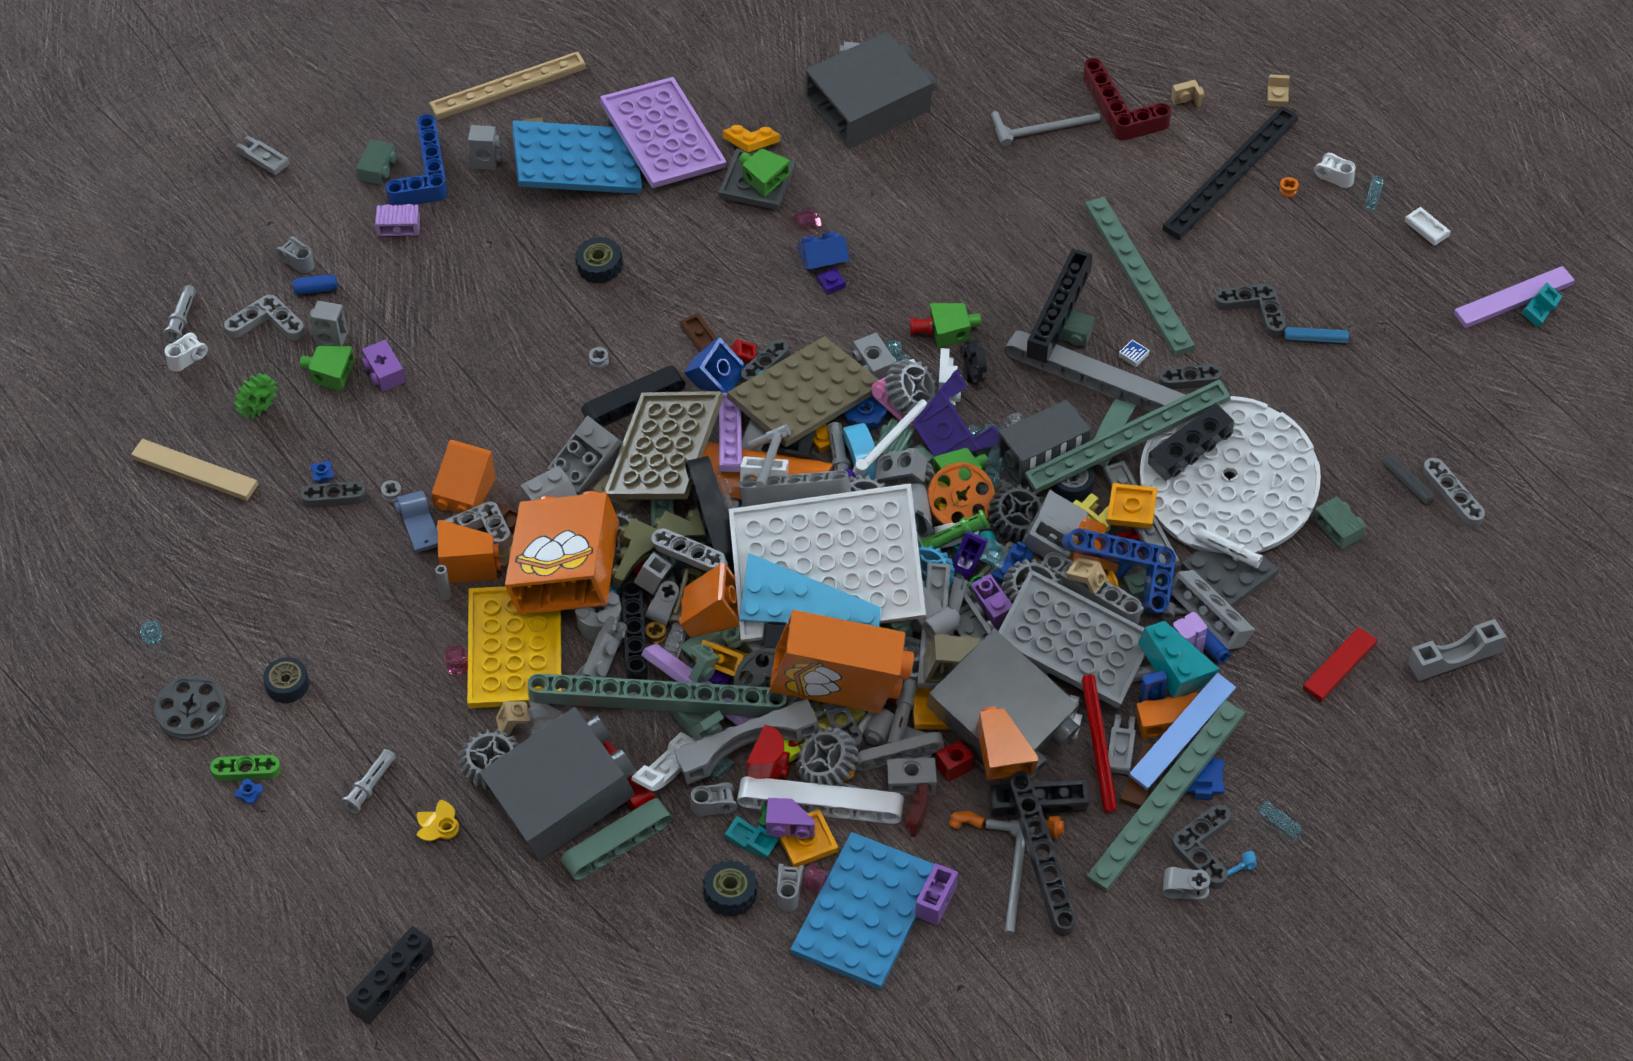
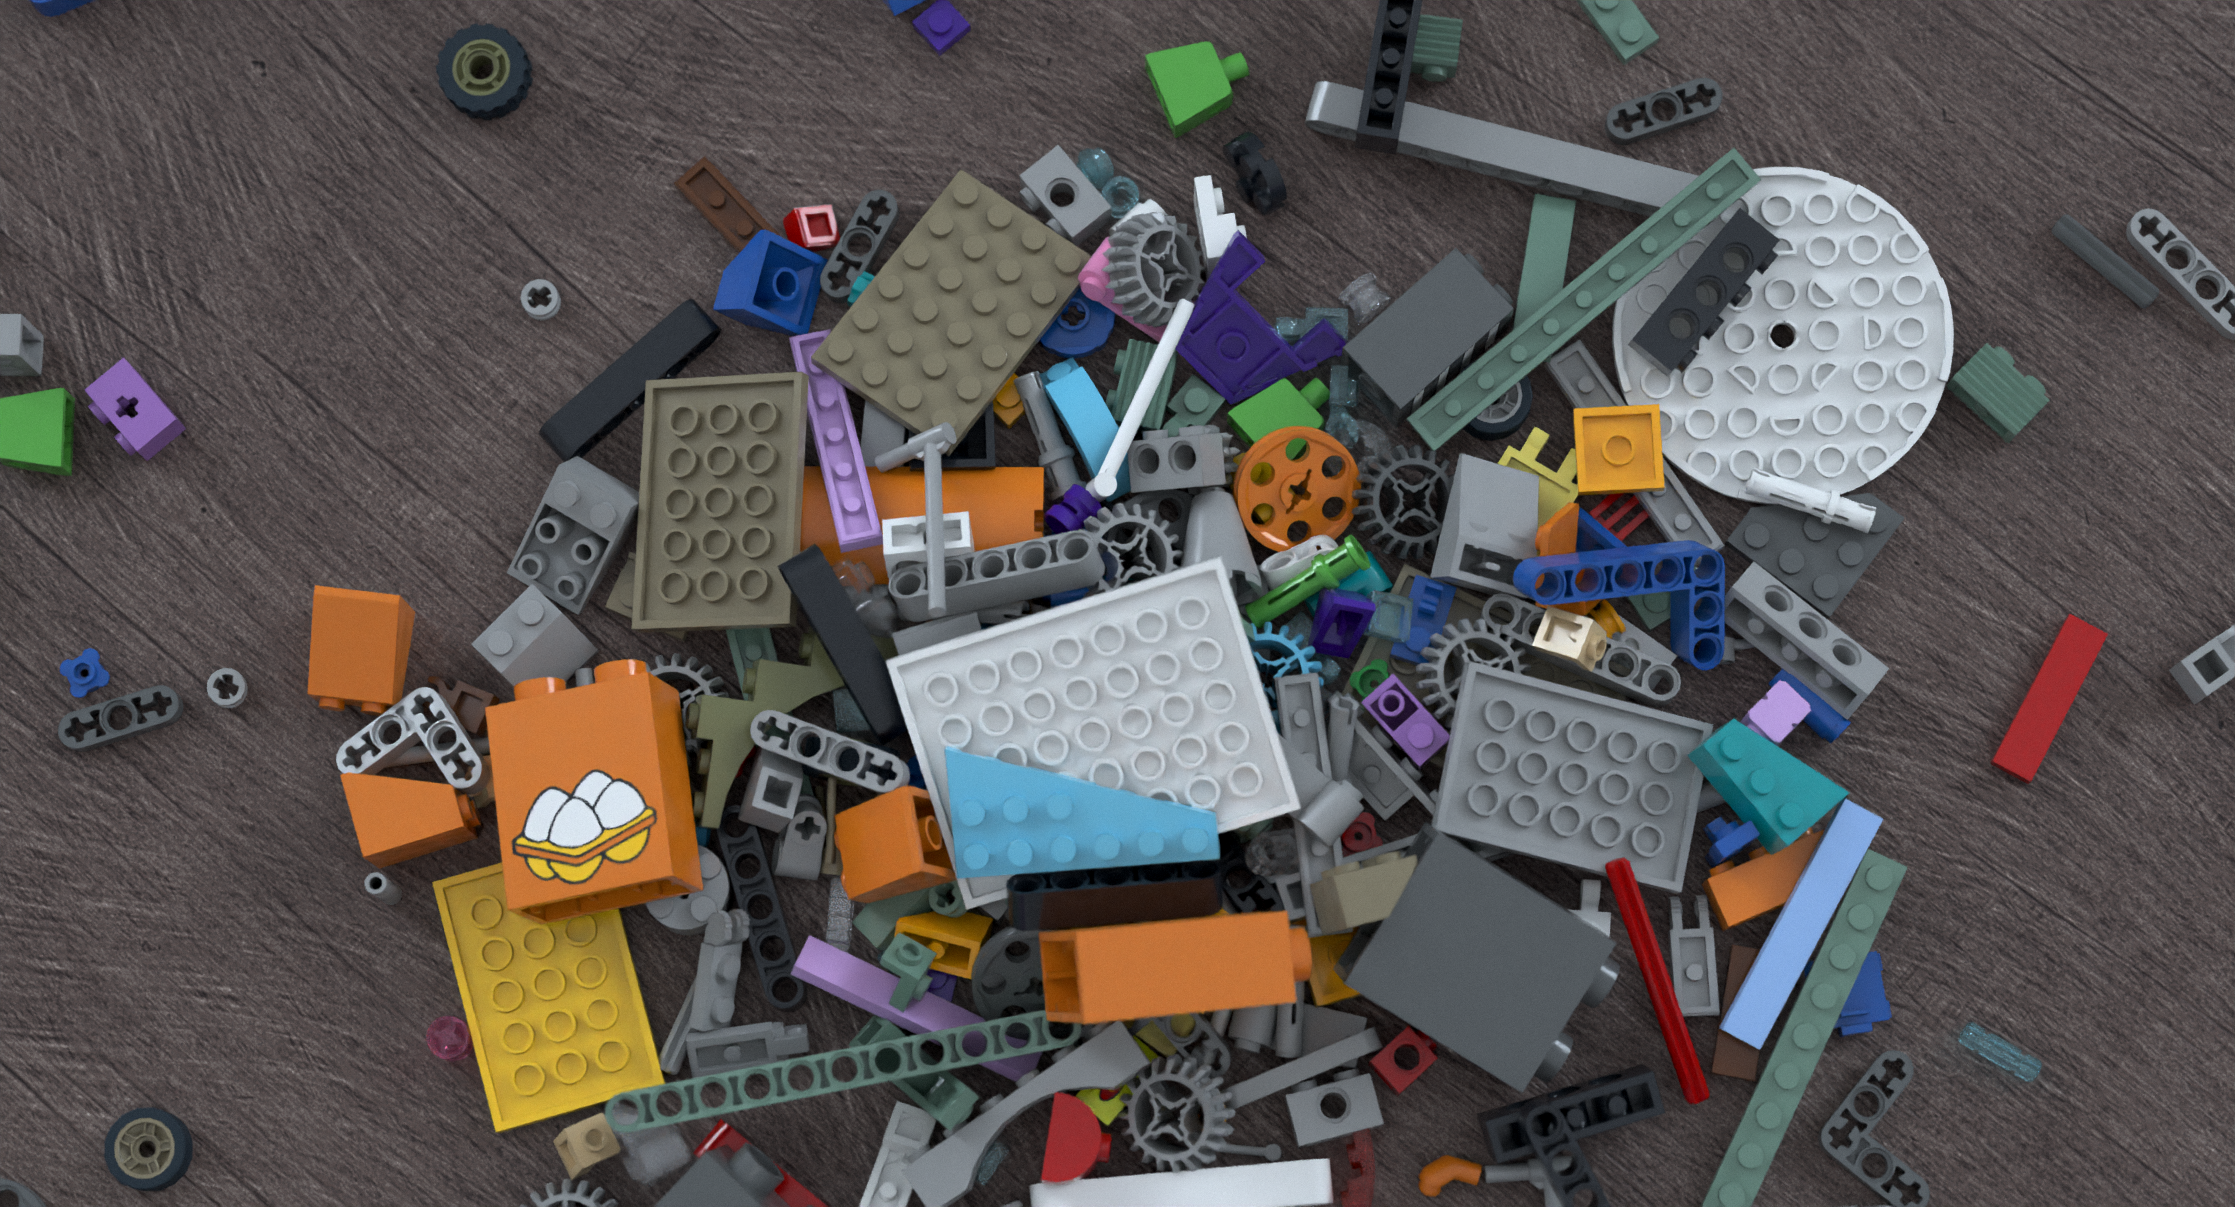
camera: 10 degrees left, 25 degrees up
(397, 220) = (67, 57): lavender brick -> none
(417, 520) = (297, 747): sand blue door -> none
(650, 630) = (810, 906): pearl gold bush -> none
(920, 326) = (1136, 101): red bush -> none
(1003, 745) = (1500, 1075): orange slope -> none
(1055, 826) = (1607, 1159): orange plate -> none
(1134, 353) = (1548, 78): white tile -> none
(1248, 863) = (1960, 1151): dark azure hand -> none

